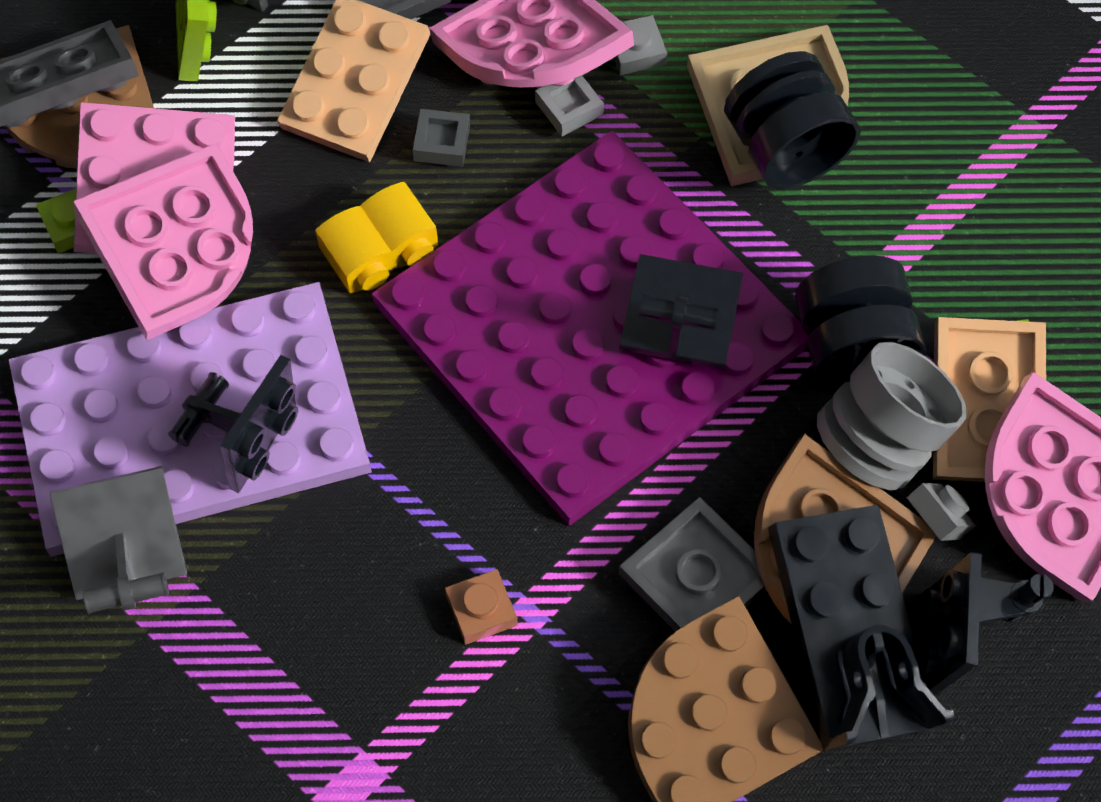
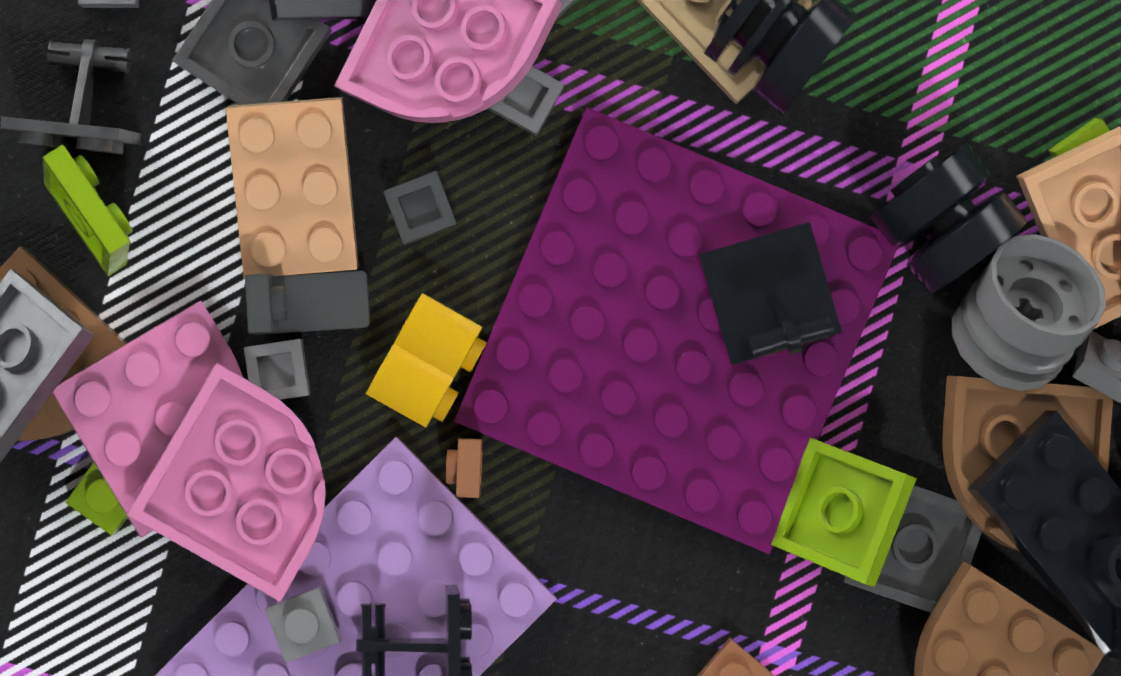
camera: 30 degrees left, 25 degrees up
(153, 368) = (303, 624): none -> light grey plate
(265, 191) = (279, 368): none -> light grey plate
(307, 158) = (307, 302): none -> dark grey bracket
(361, 328) = (465, 467): none -> nougat plate
(651, 505) = (843, 512): none -> lime plate

